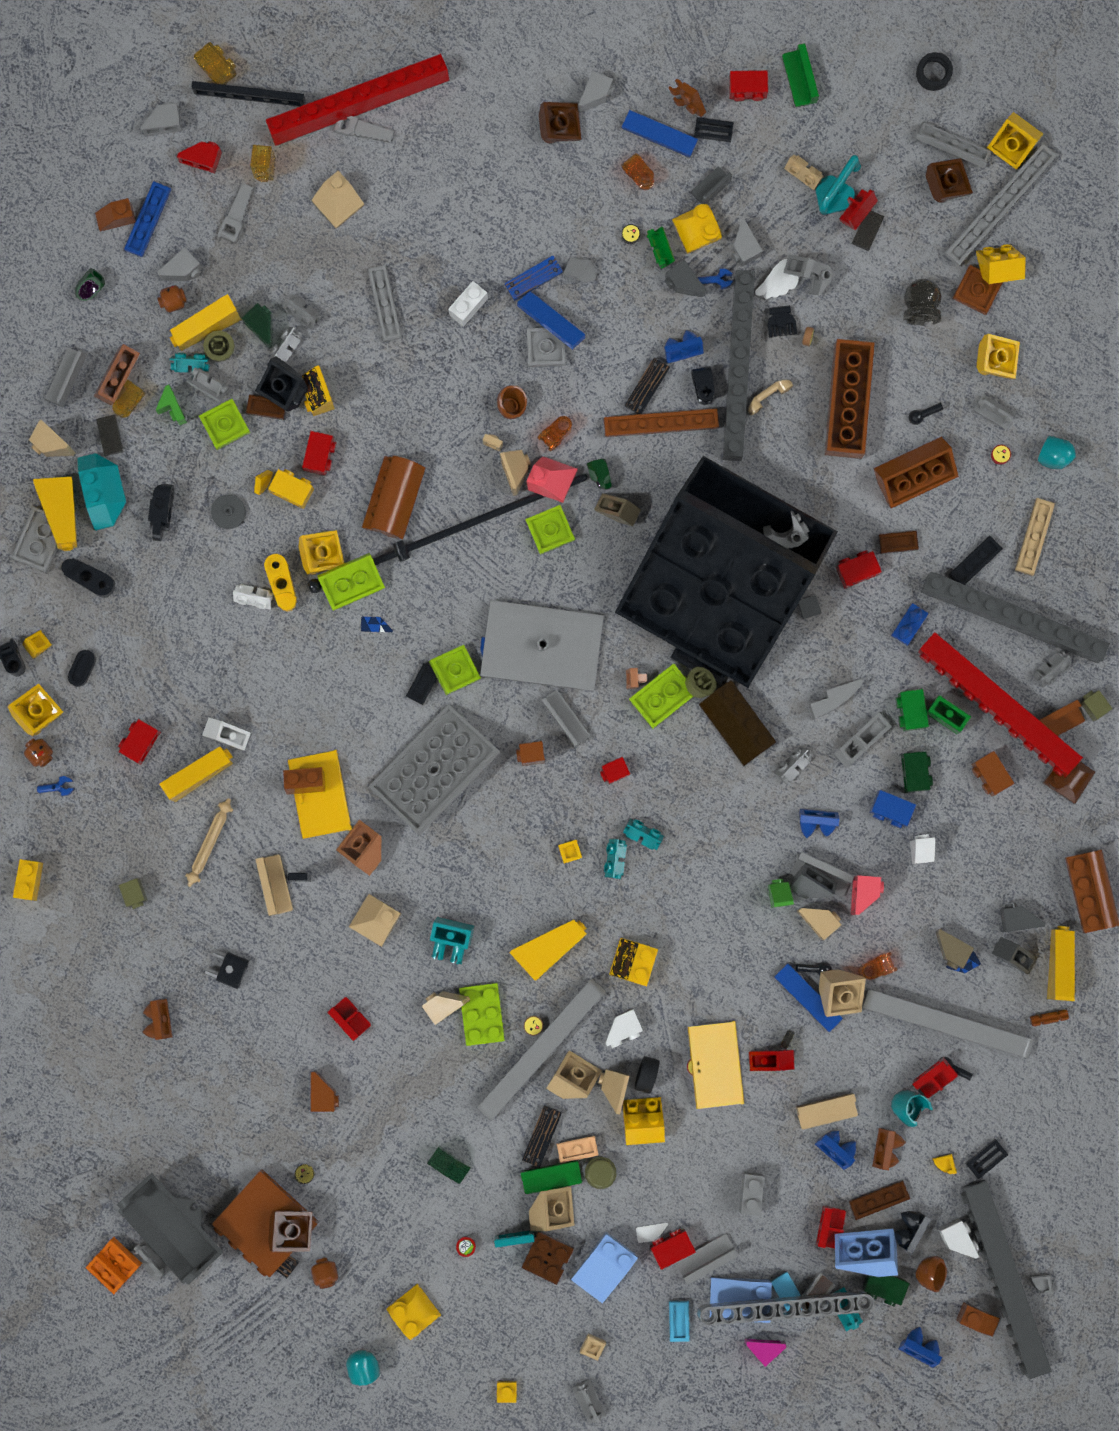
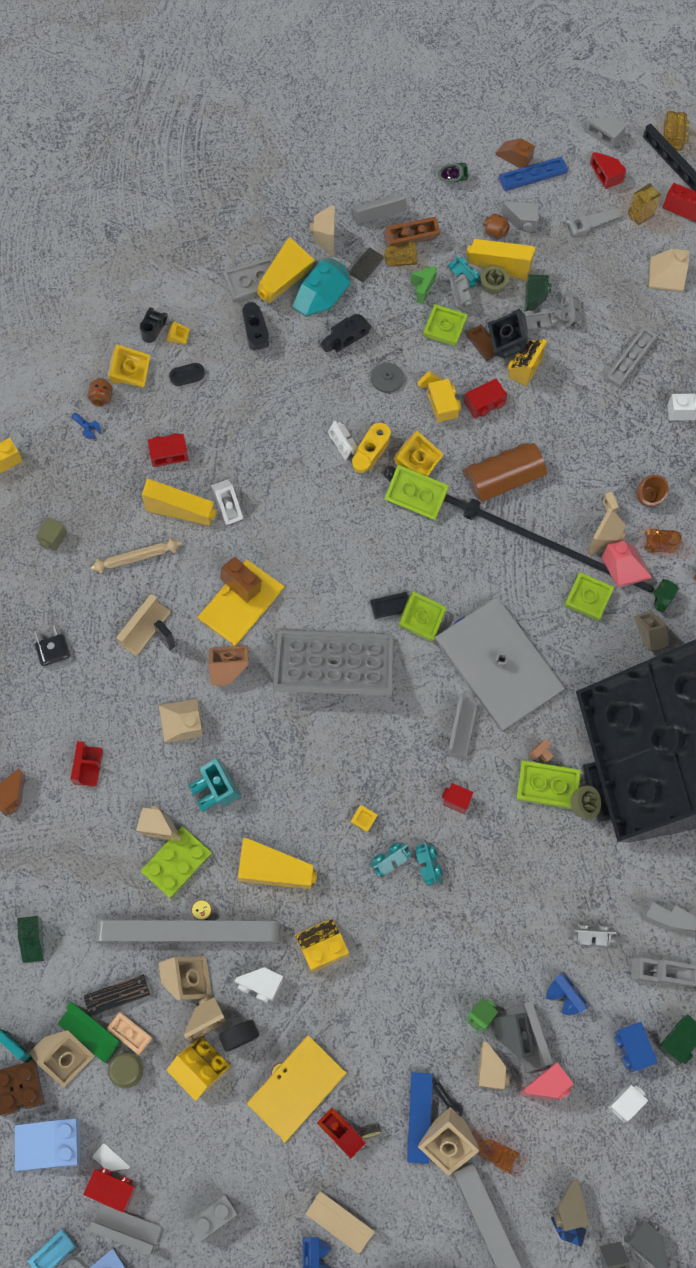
camera: 50 degrees right, 15 degrees down
(374, 624) = (401, 537): sticker -> none
(530, 753) = (411, 722): dark orange brick -> none
(737, 723) = (583, 860): dark brown slope -> none

